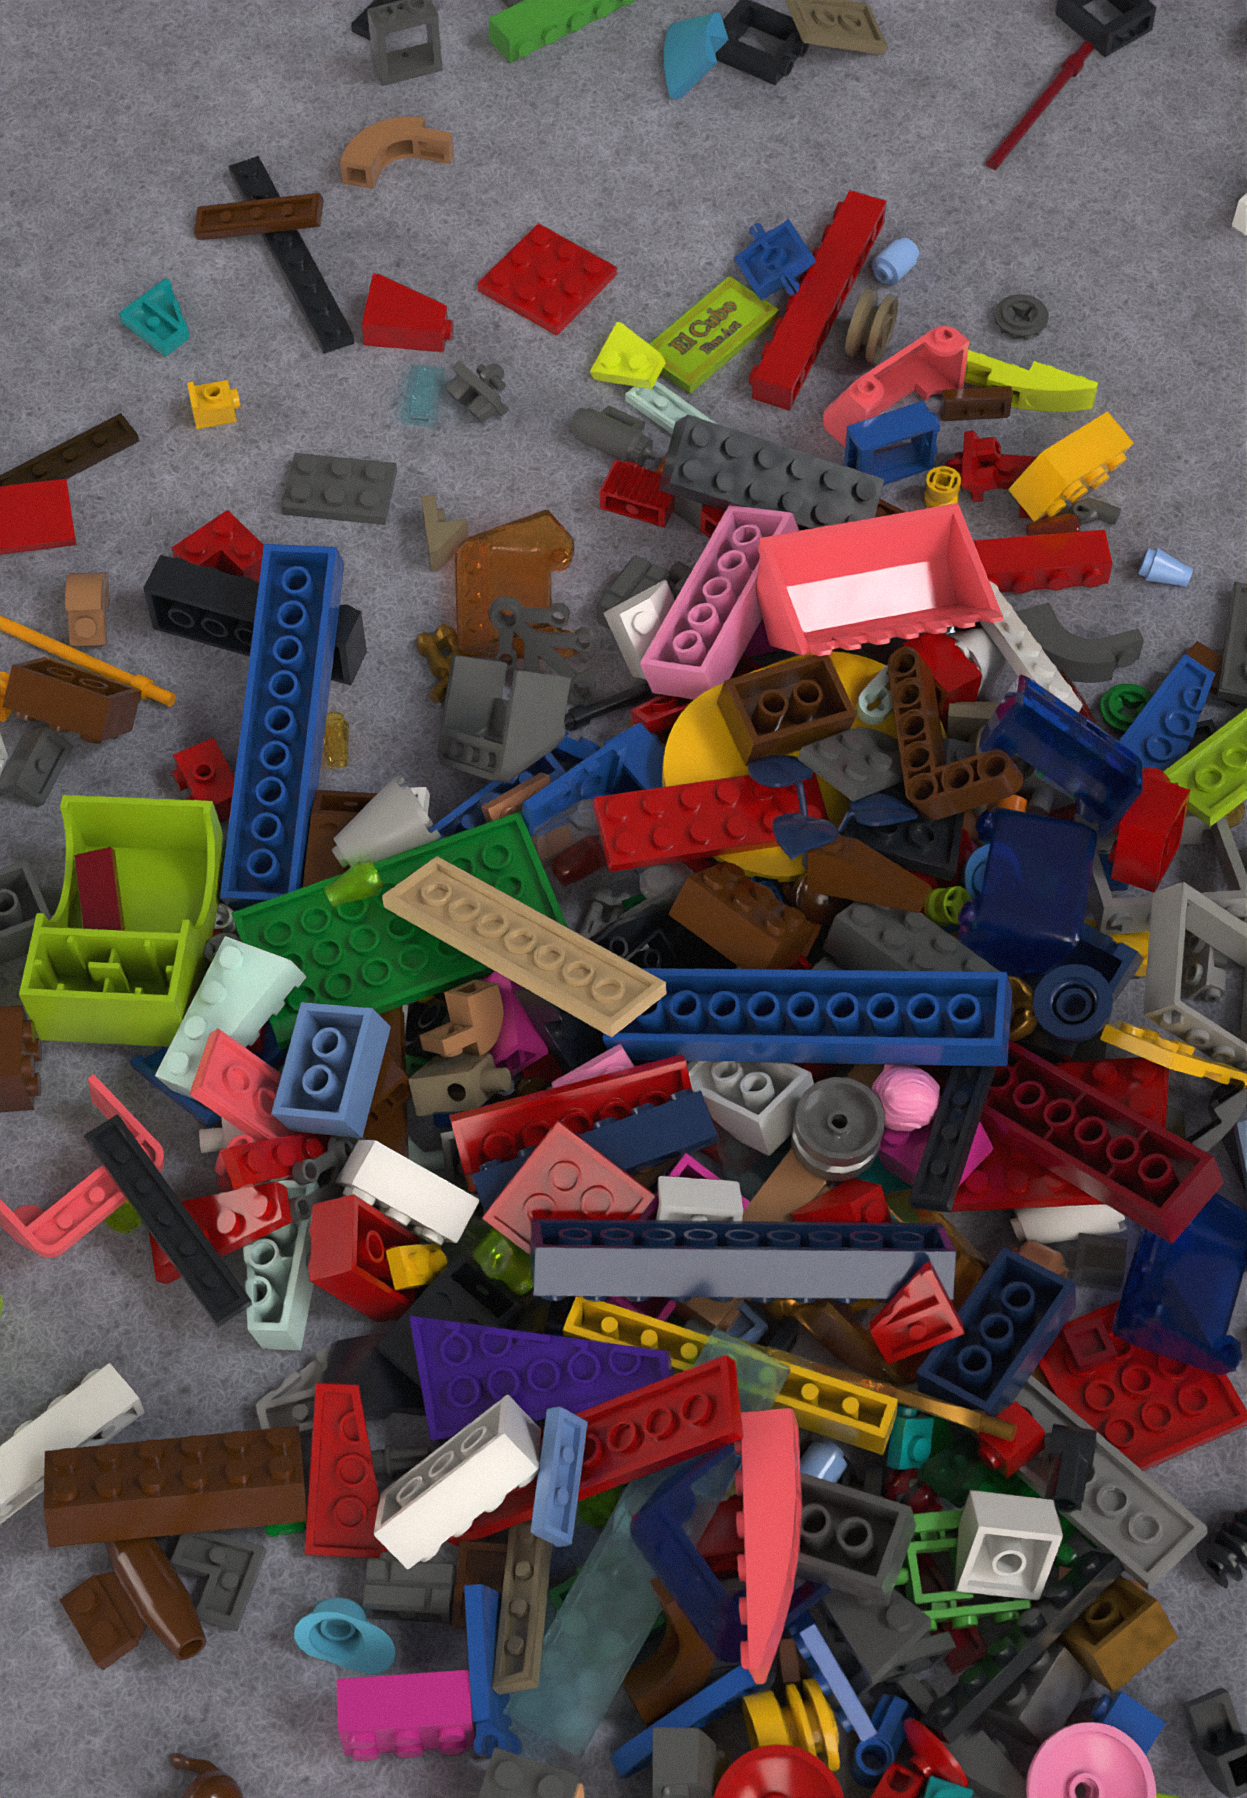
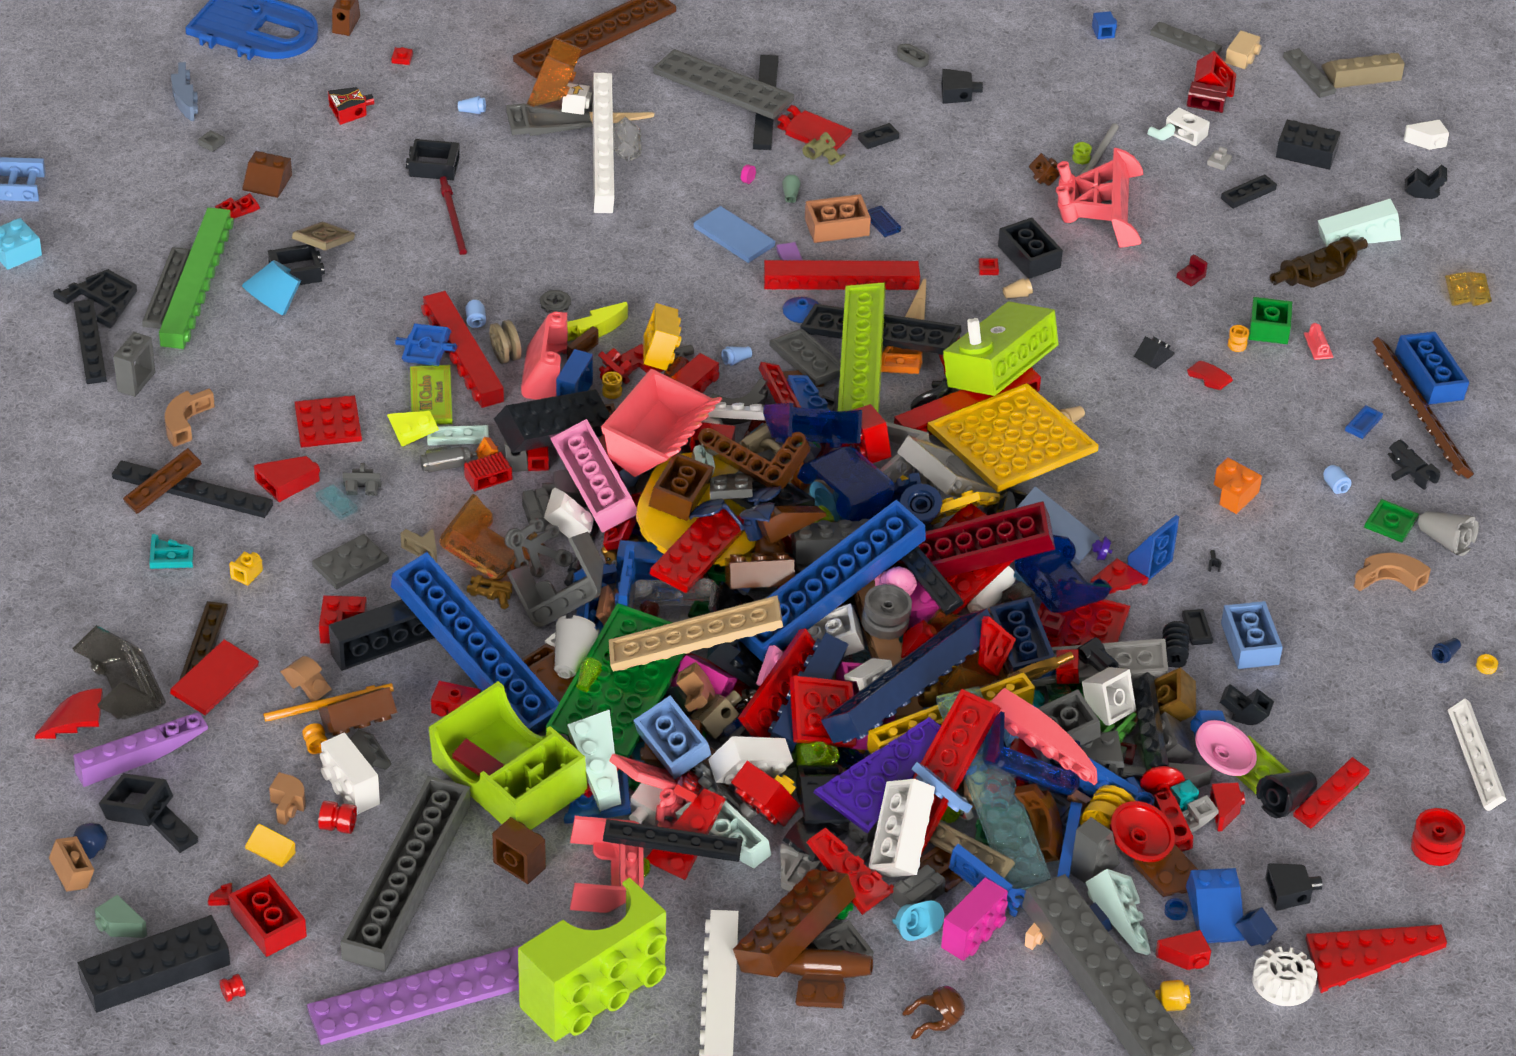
camera: 50 degrees left, 15 degrees down
(1145, 672) = (777, 384): none -> red plate

